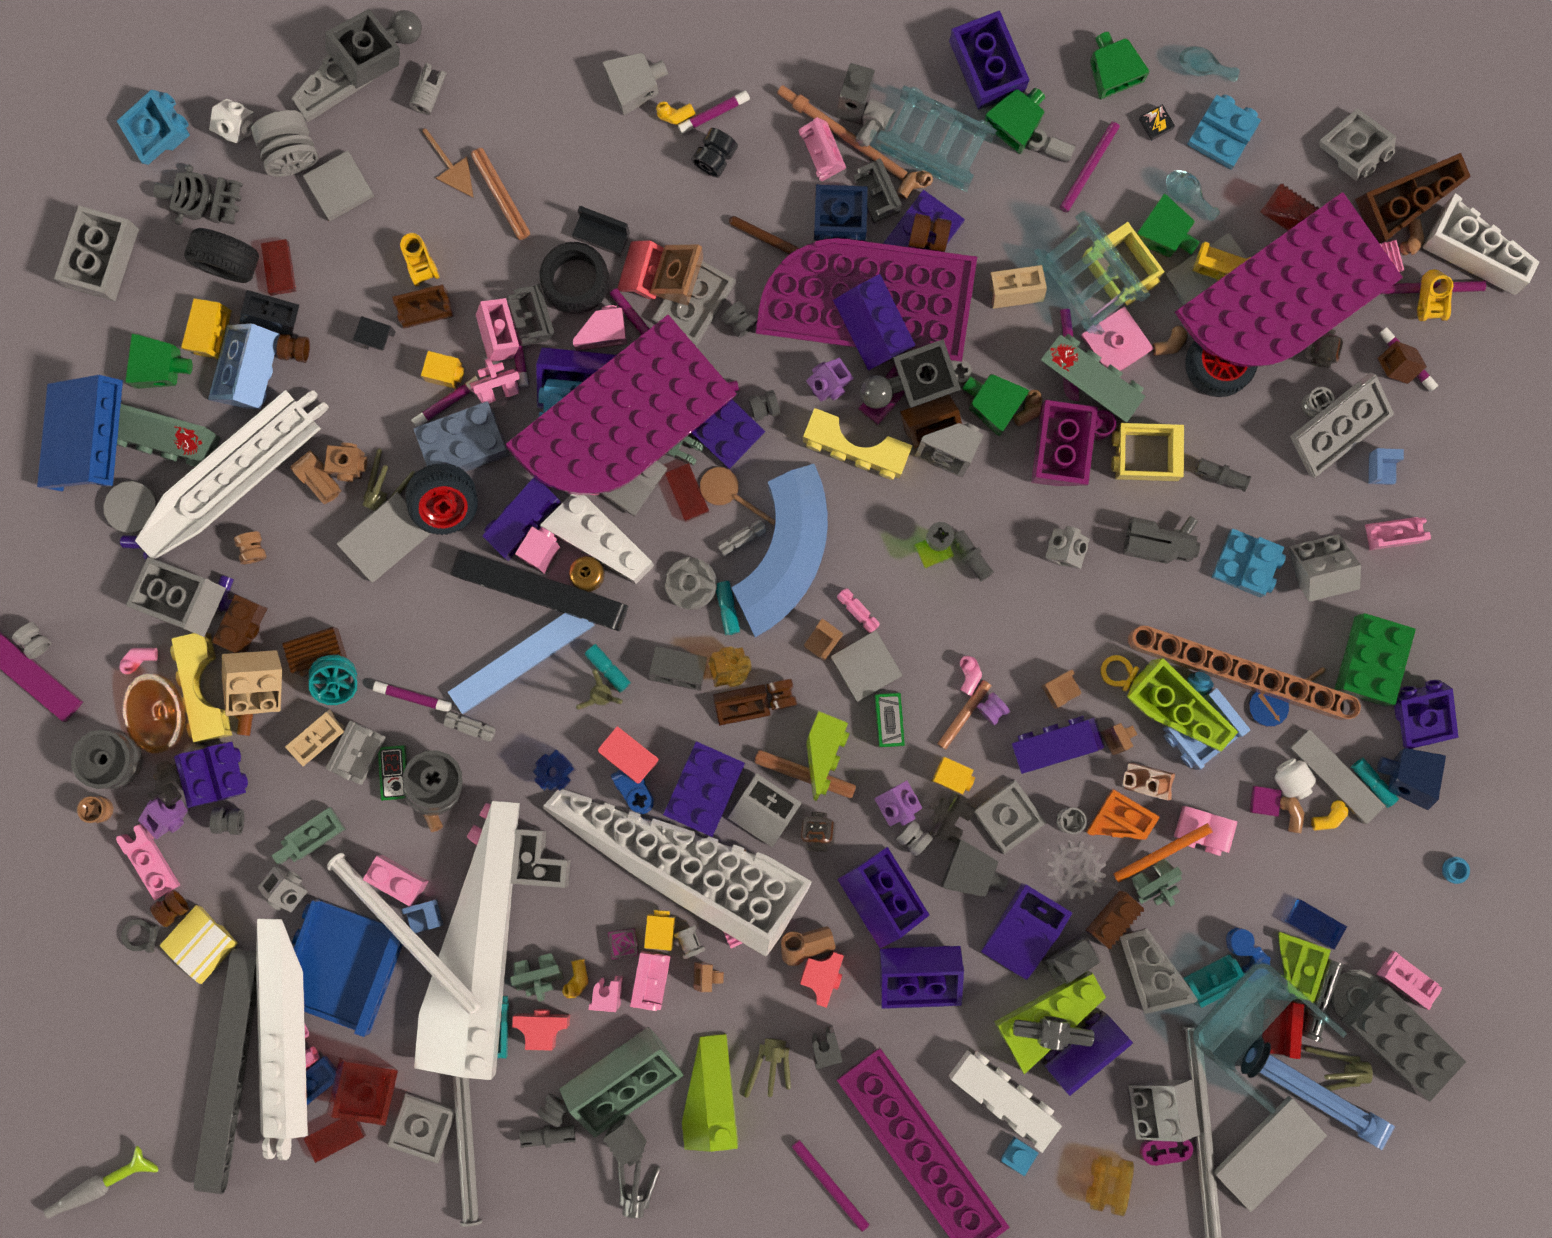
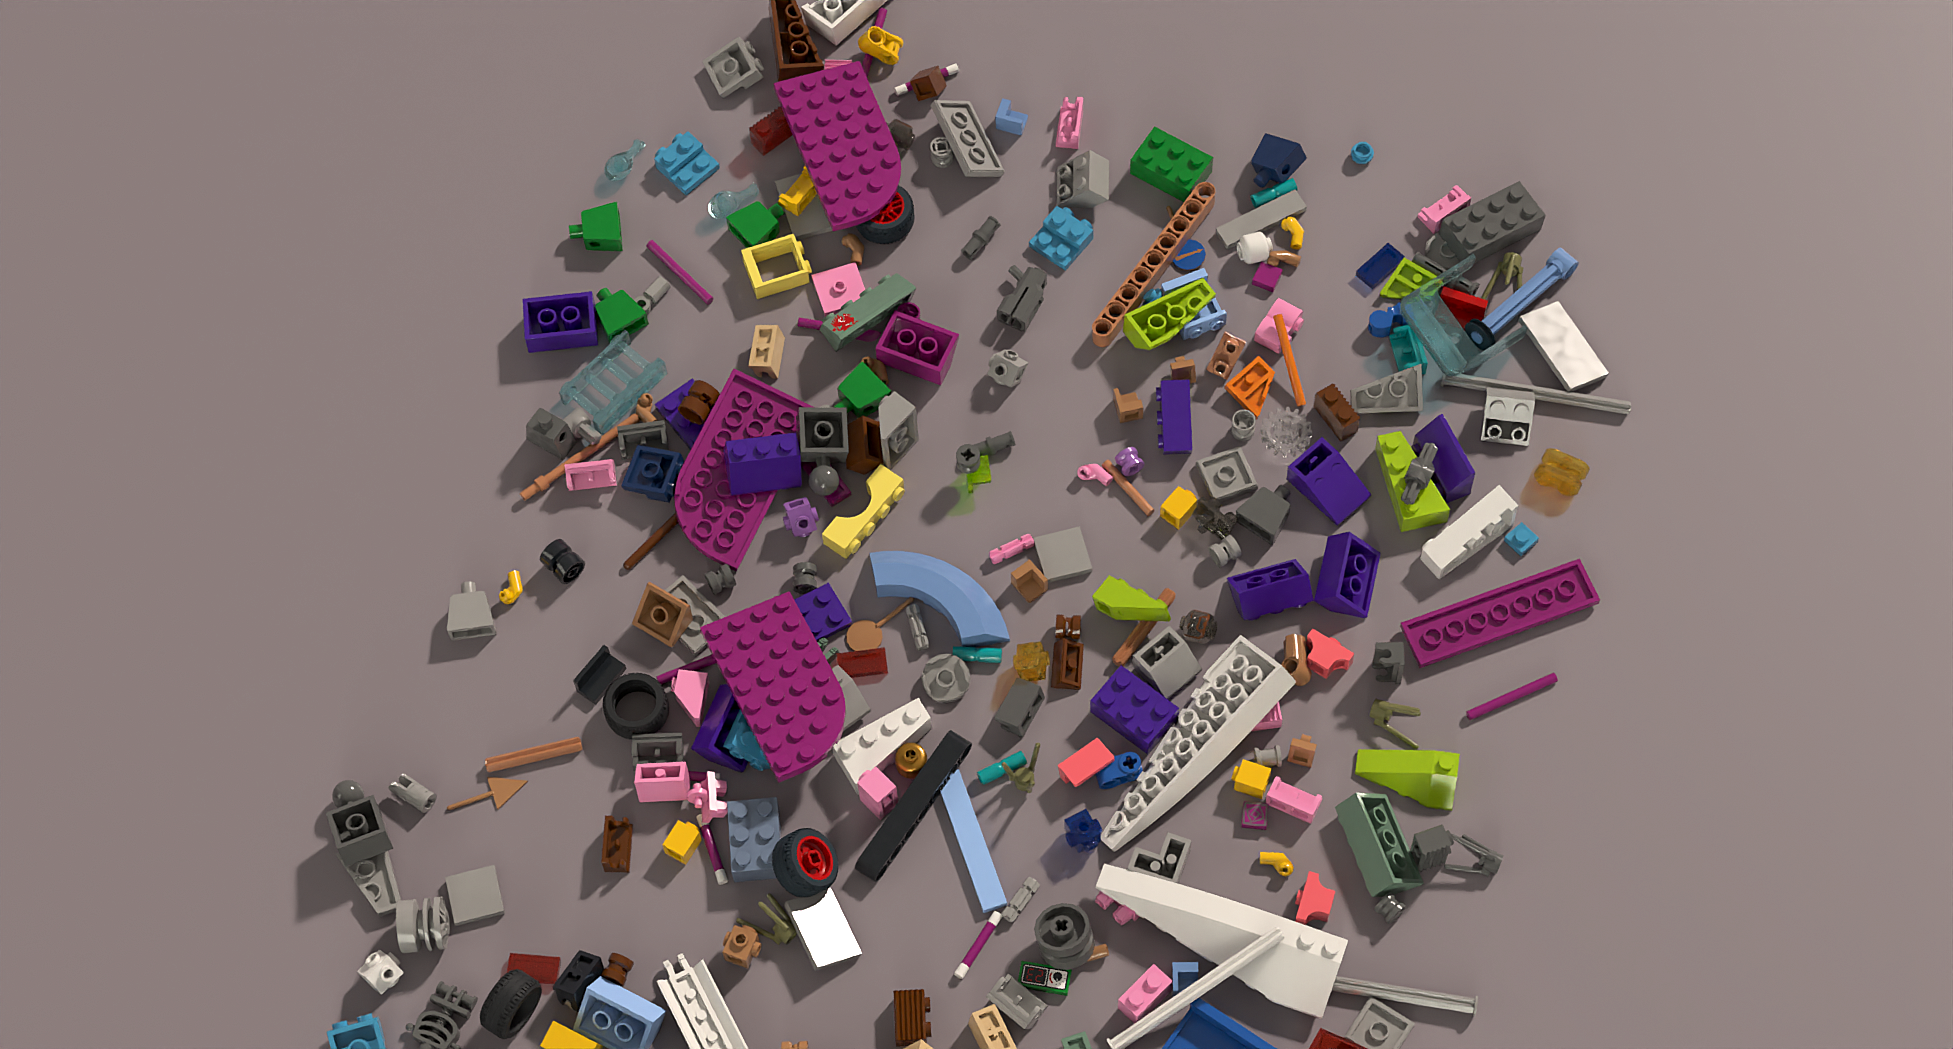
camera: 70 degrees left, 20 degrees down
(311, 472) = (739, 981): medium nougat piece -> none
(333, 680) = (943, 1004): teal wheel -> none
(372, 334) = (628, 893): black panel -> none
(420, 263) = (573, 838): yellow piece -> none
(527, 510) = (842, 802): dark purple wedge -> none
(536, 981) = (1270, 891): sand green hips -> none
(547, 1136) = (1412, 920): dark grey pin -> none
(607, 997) = (1300, 827): bright pink hinge -> none
(640, 268) = (644, 651): coral panel -> none
(713, 112) = (522, 557): magenta bar -> none
(889, 720) = (1115, 549): slope -> none
(899, 804) = (1192, 554): medium lavender brick -> none
(1072, 959) = (1362, 447): dark grey torso -> none
(1117, 269) = (759, 272): clear light blue fence -> none
(1125, 684) = (1128, 348): yellow piece -> none
(1156, 122) = (659, 211): tile -> none
(1167, 877) = (1311, 364): sand green hips -> none
(1167, 1156) = (1547, 424): magenta beam -> none
(1175, 463) = (948, 267): light yellow window -> none
(1415, 240) = (827, 47): medium nougat arm -> none
(1426, 714) = (1227, 139): dark purple plate -> none

